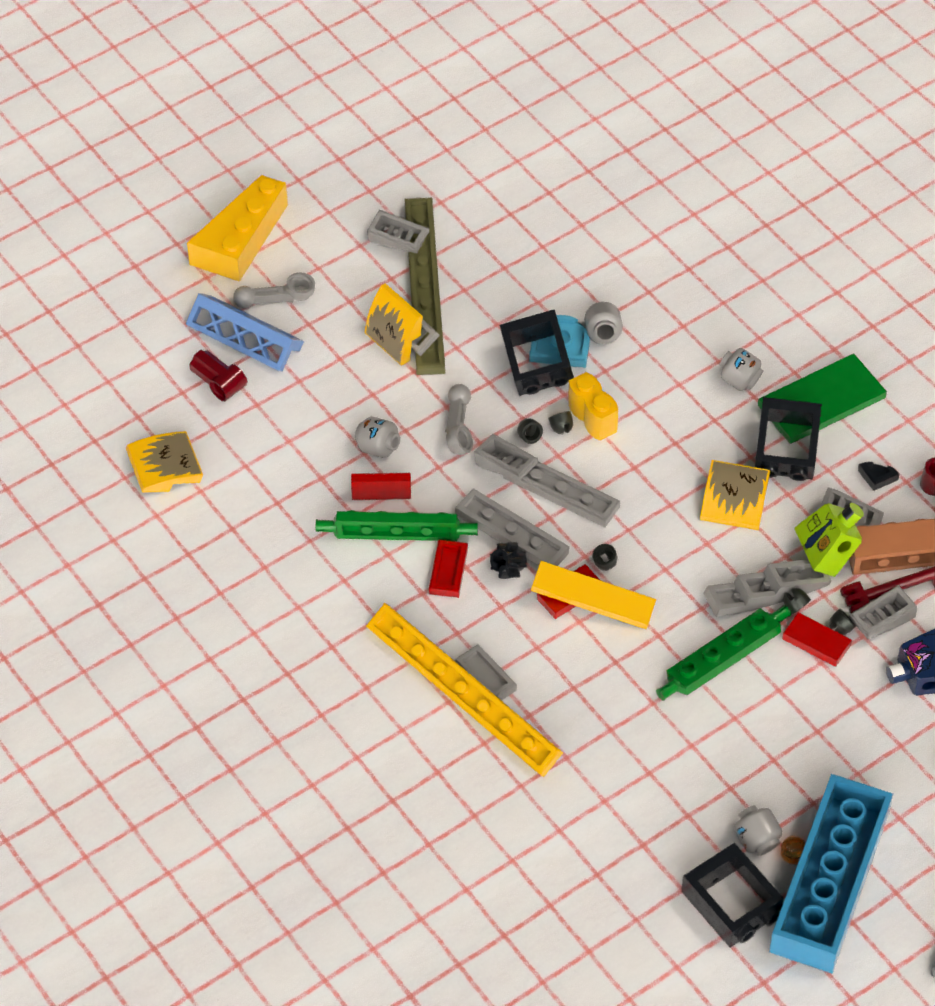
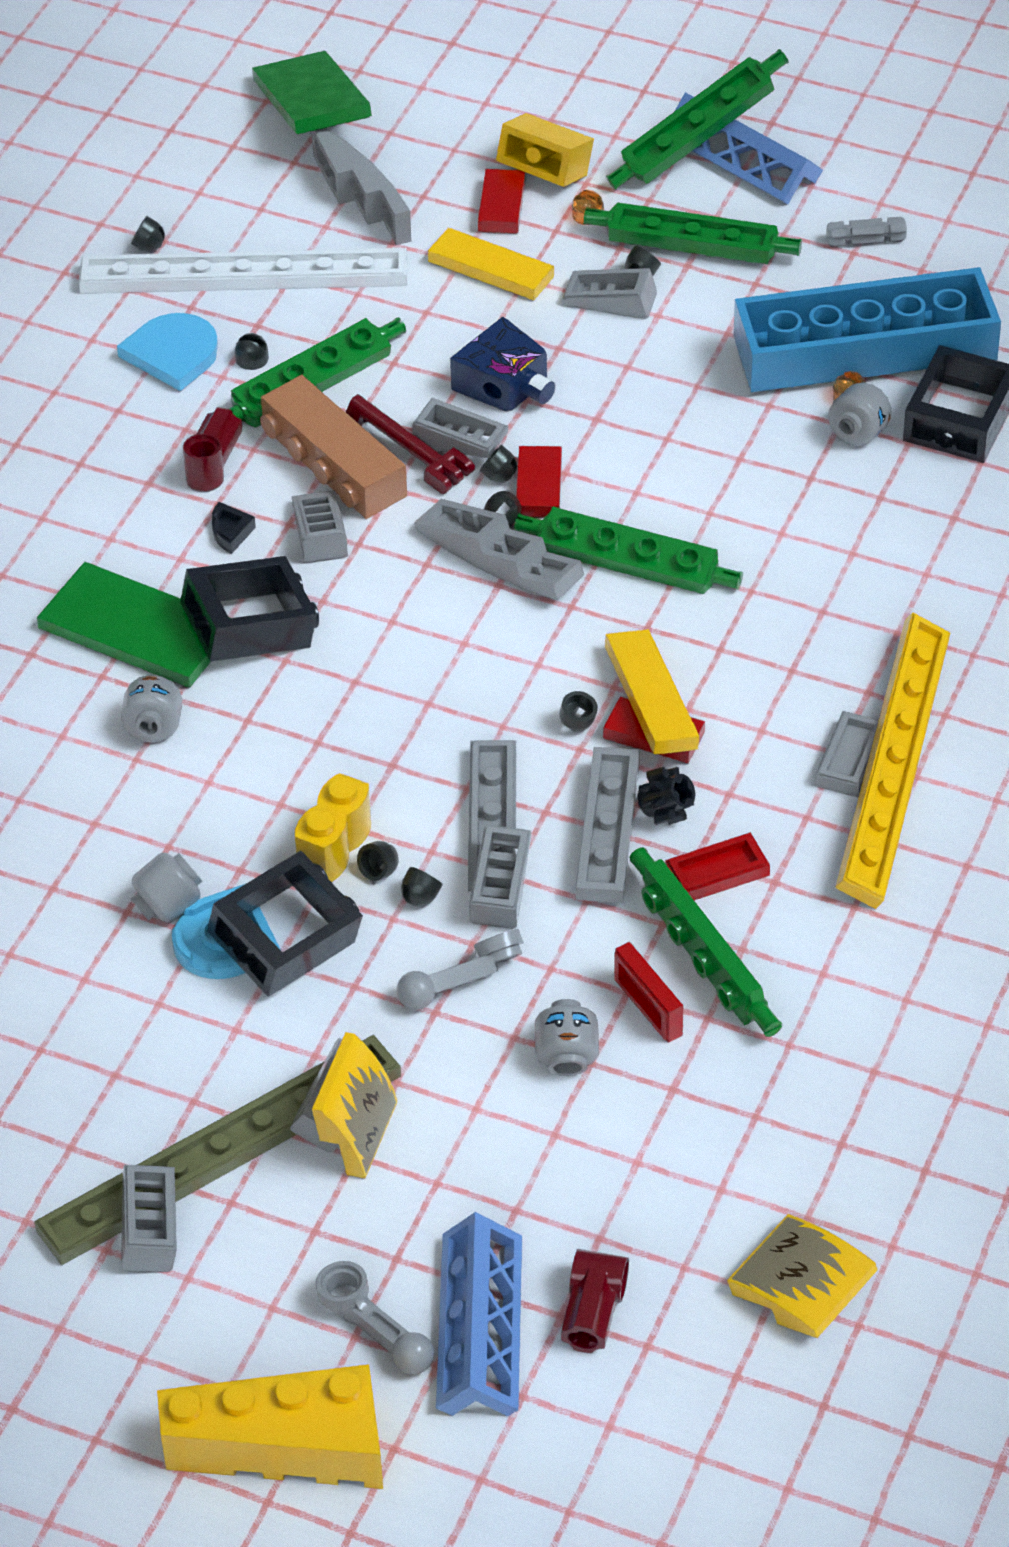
camera: 120 degrees left, 5 degrees down
(735, 495) = (373, 634): slope -> none
(830, 537) = (390, 497): lime torso -> none

